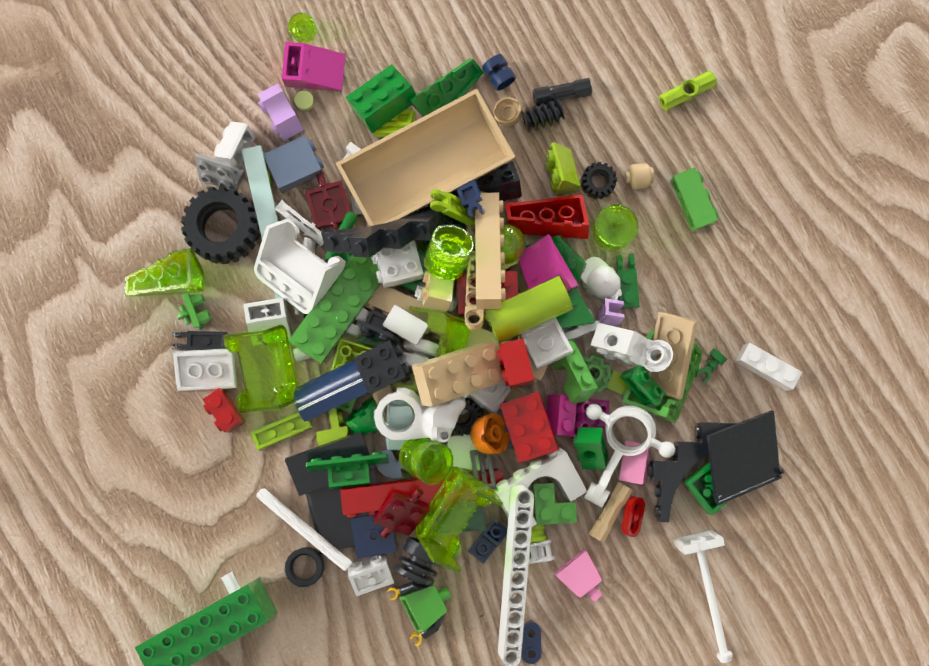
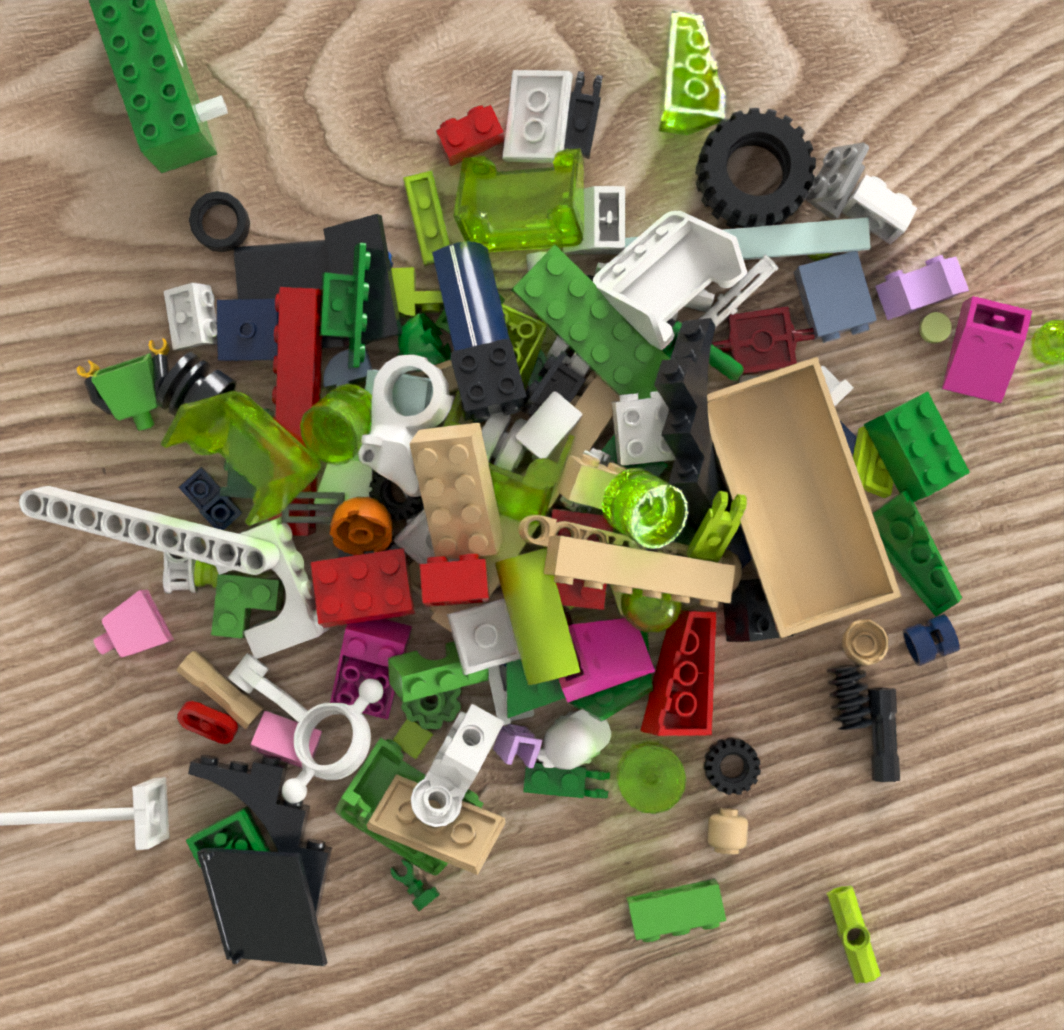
camera: 100 degrees right, 5 degrees up
(192, 302) = (642, 109): bright green hips -> none
(304, 529) = (273, 228): white axle -> none
(402, 513) = (267, 375): dark red plate -> none
(470, 198) = (728, 556): dark blue plate -> none
(531, 643) = (51, 537): dark blue plate -> none
(562, 170) = (755, 712): lime slope -> none
(591, 448) = (317, 677): green brick -> none
(643, 385) = (397, 773): green bracket -> none
(768, 367) = (396, 972): white brick -> none

